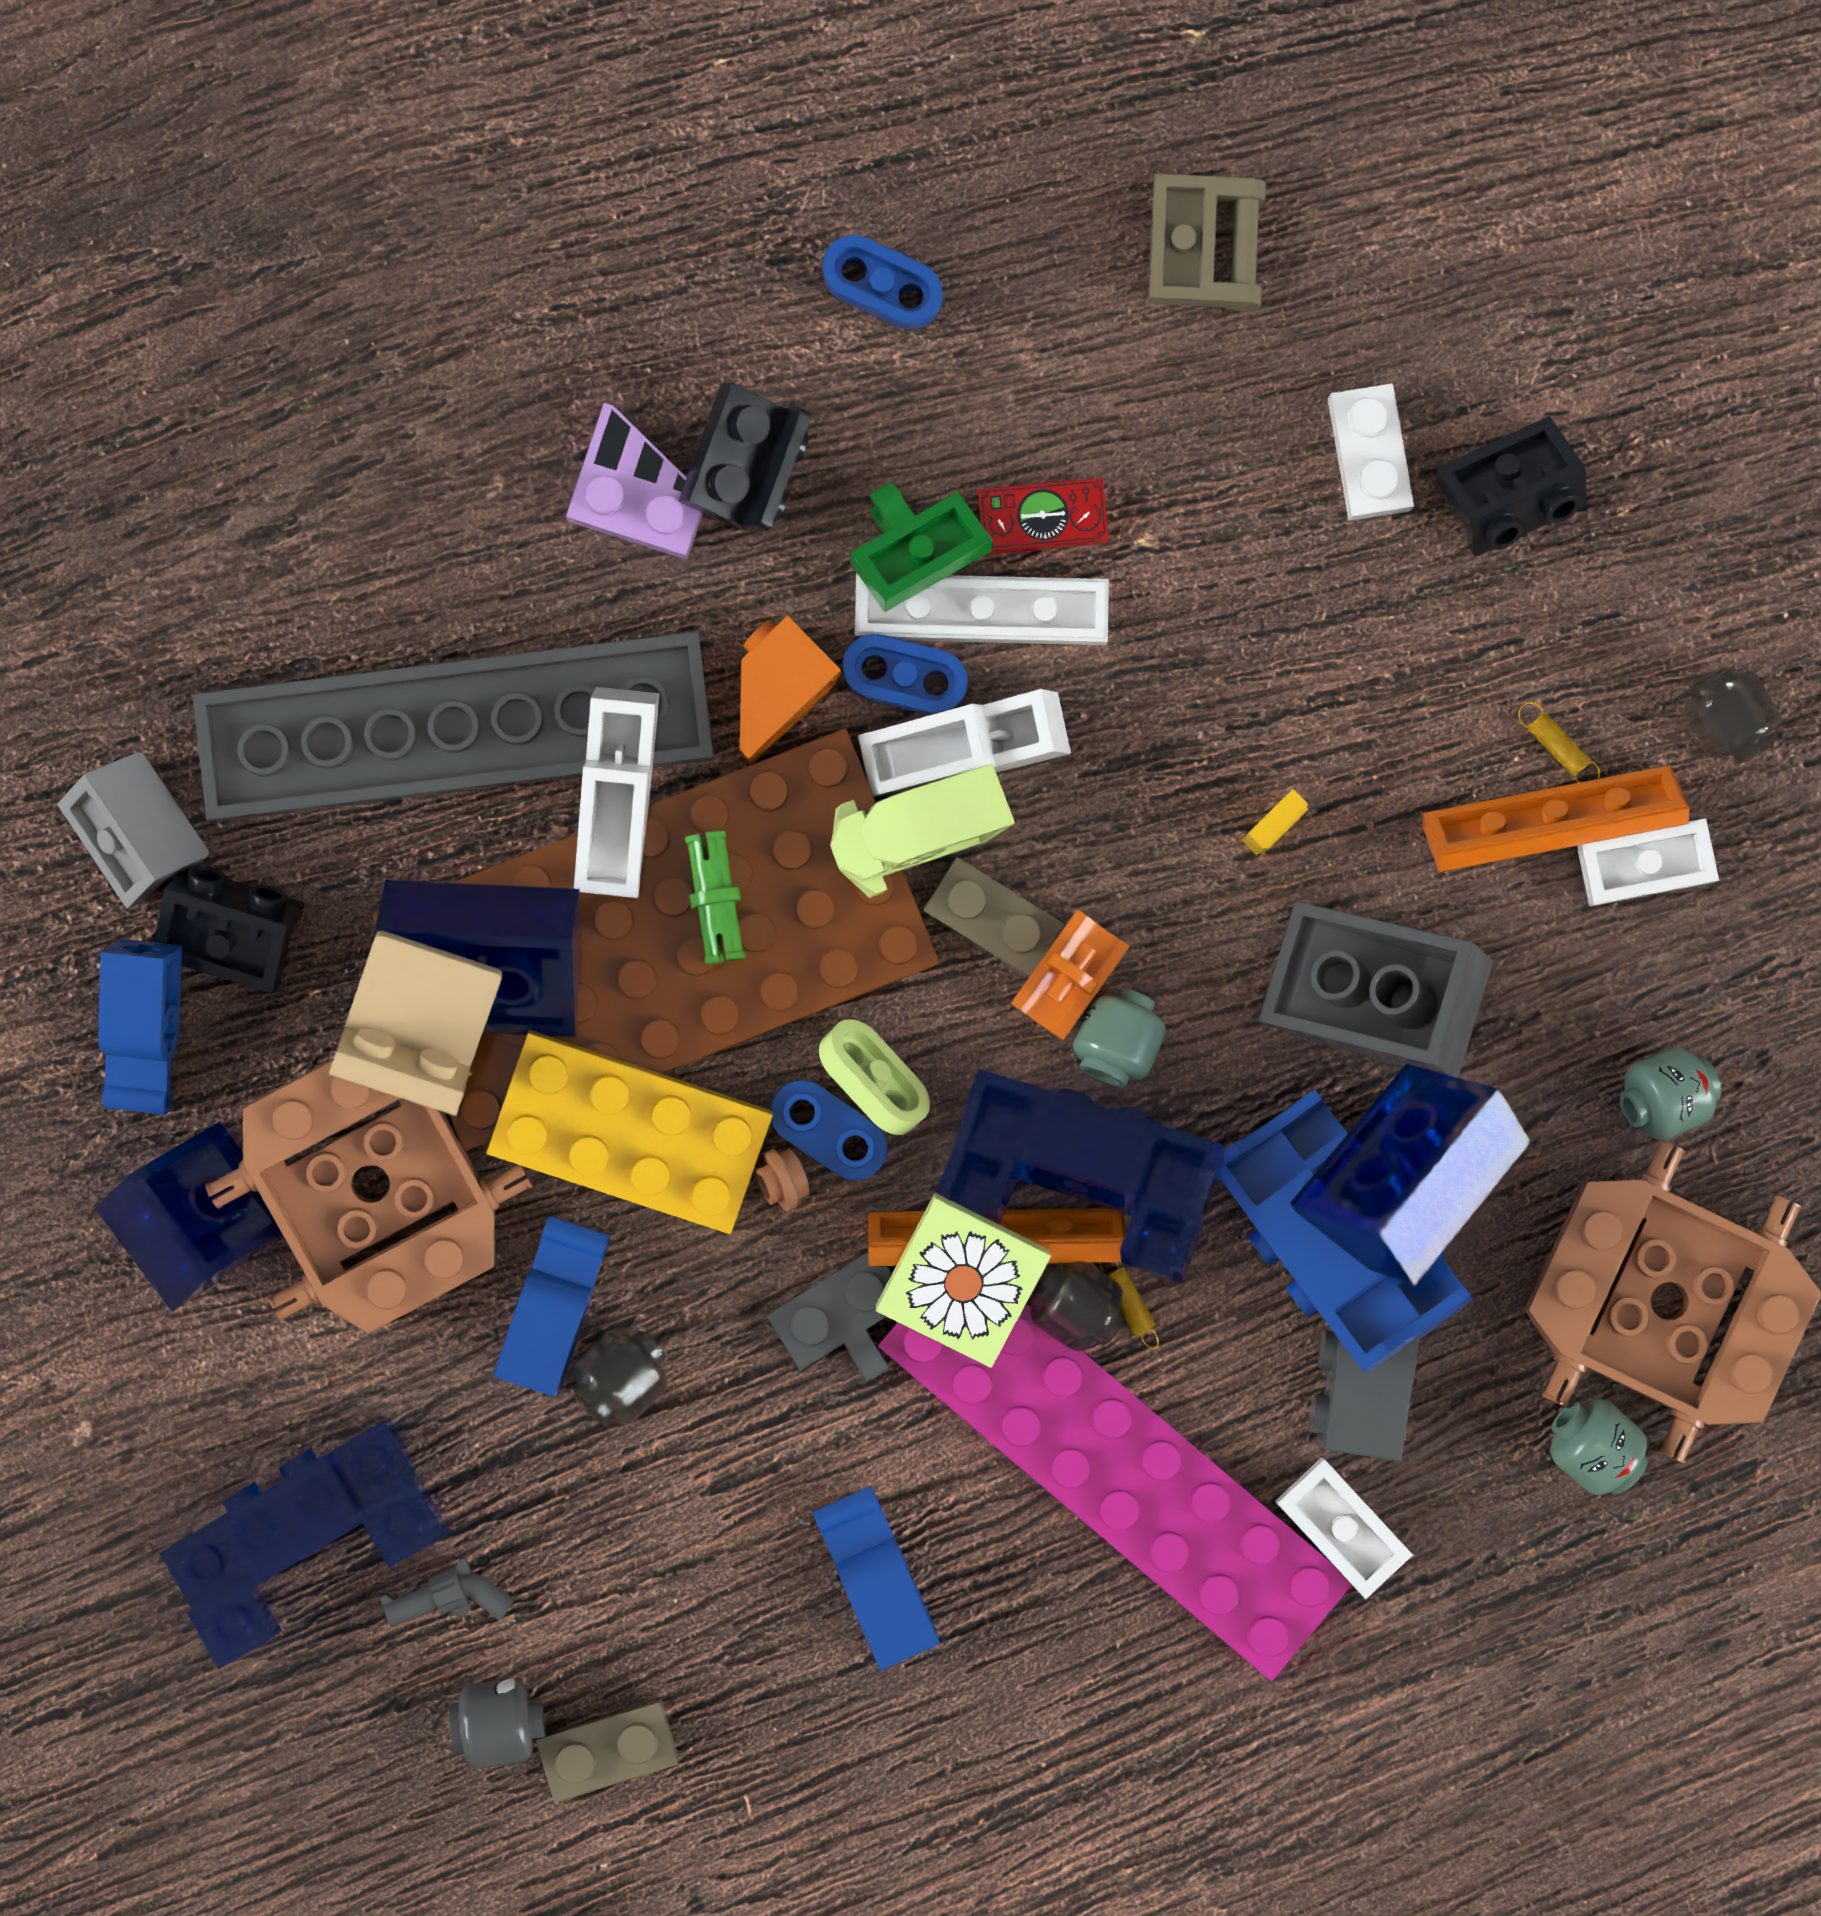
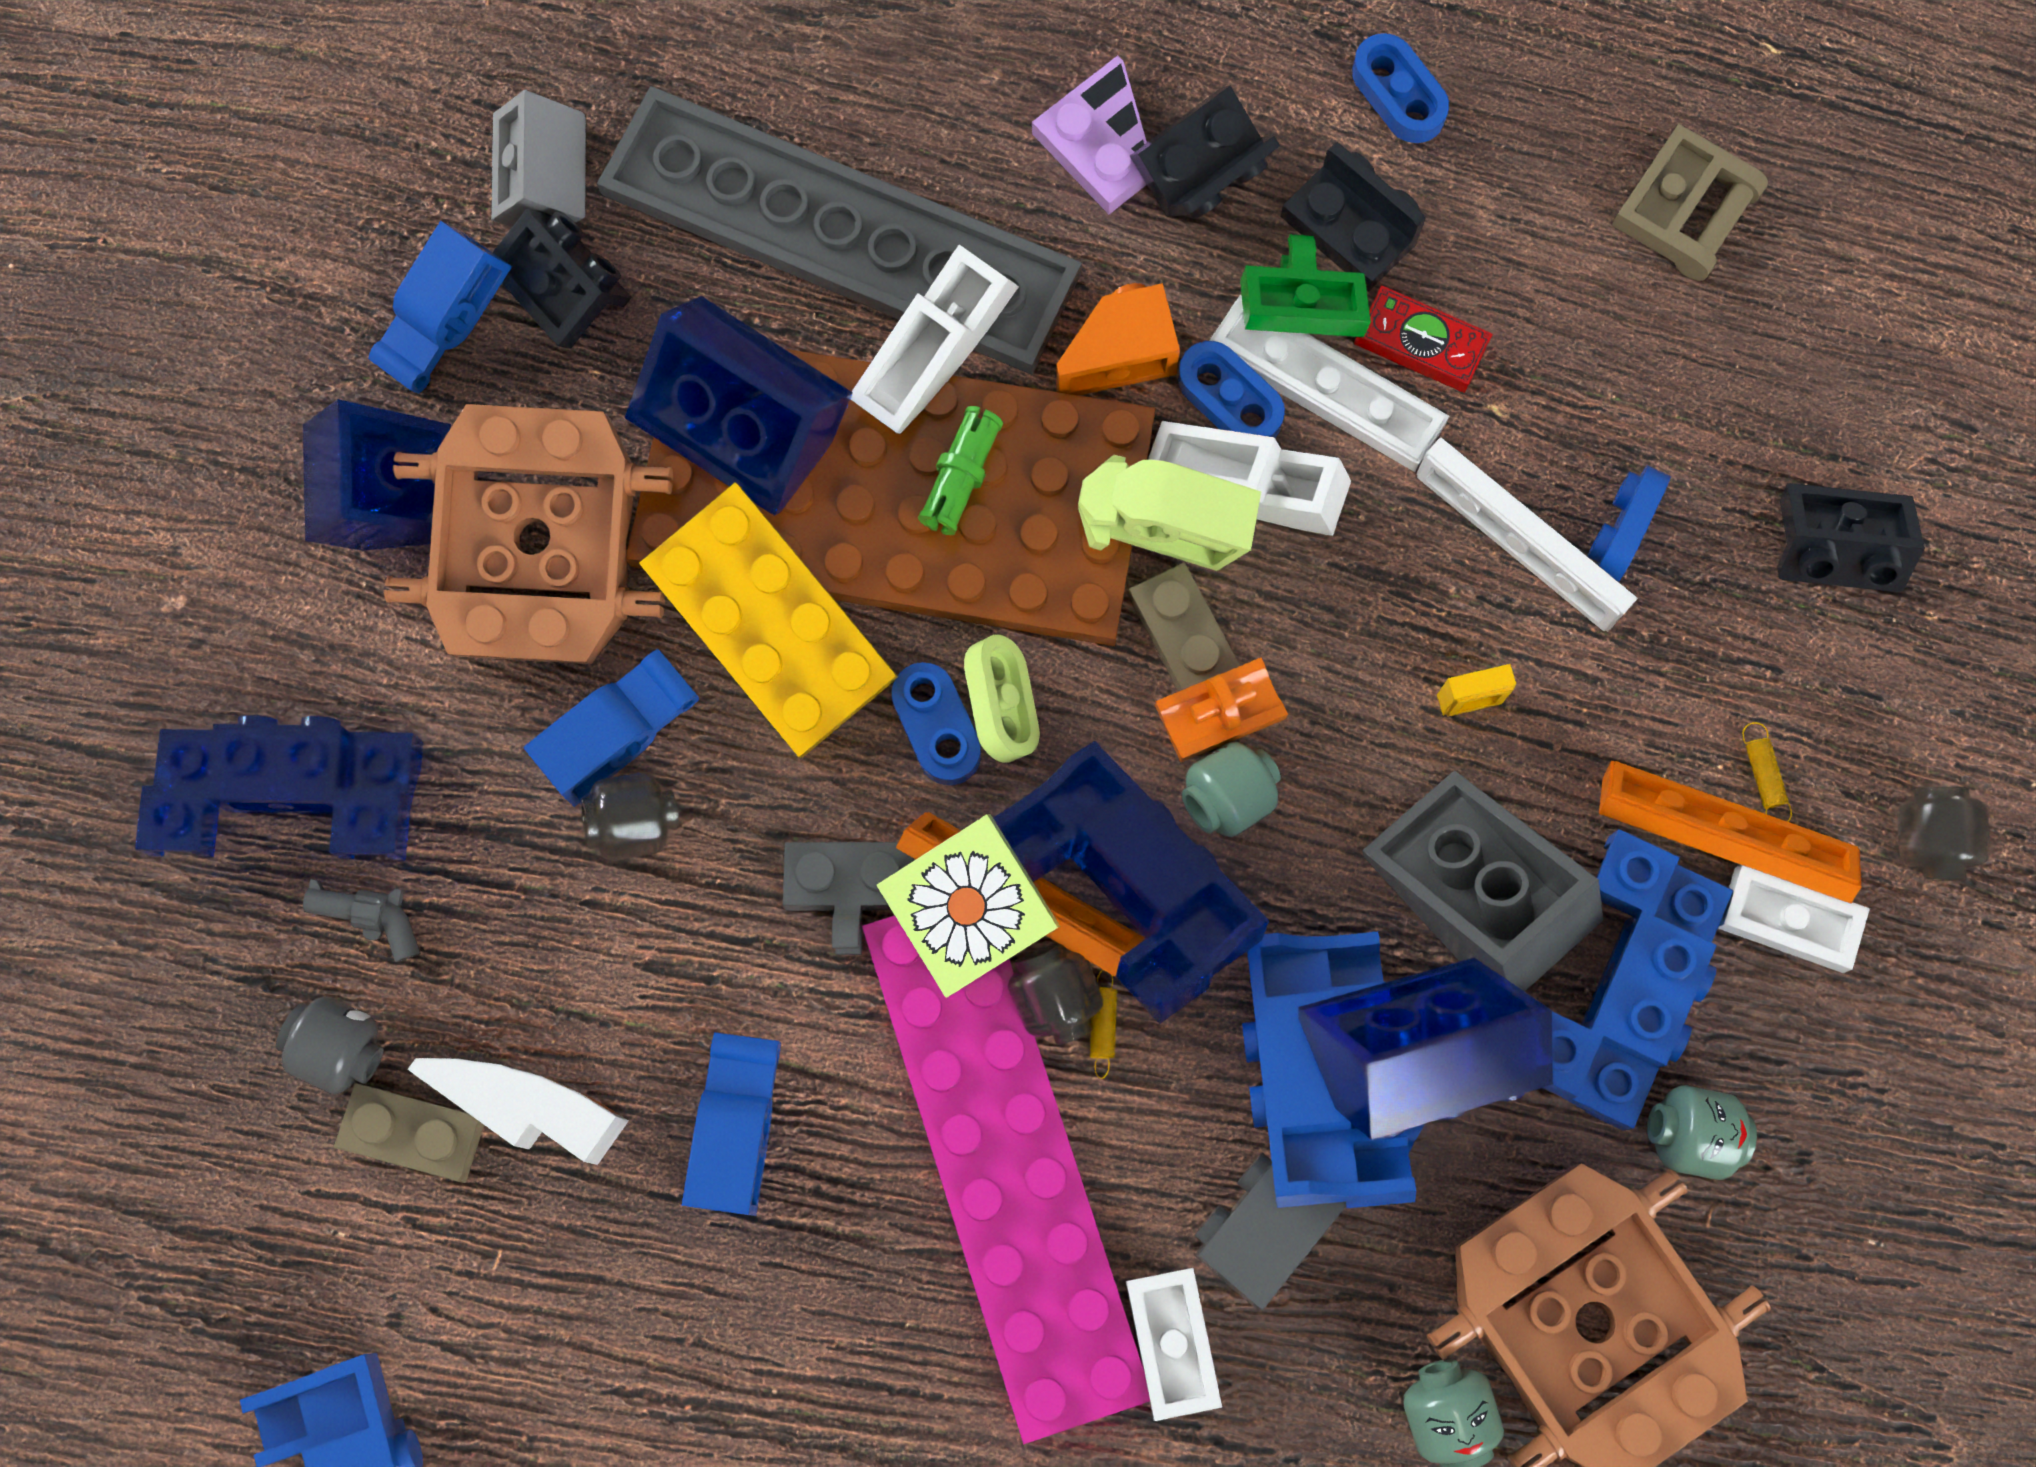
camera: 40 degrees right, 10 degrees down
(416, 1022) = (647, 407): tan bracket -> none
(686, 1670) = (524, 1105): none -> white slope
(782, 1179) = (870, 736): nougat plate -> none
(914, 436) = (1355, 216): none -> black bracket
(1237, 656) = (1524, 535): none -> white tile
(1322, 616) = (1638, 499): none -> blue plate
(1370, 452) = (1735, 443): white plate -> none
(1558, 997) = (1646, 984): none -> blue bracket

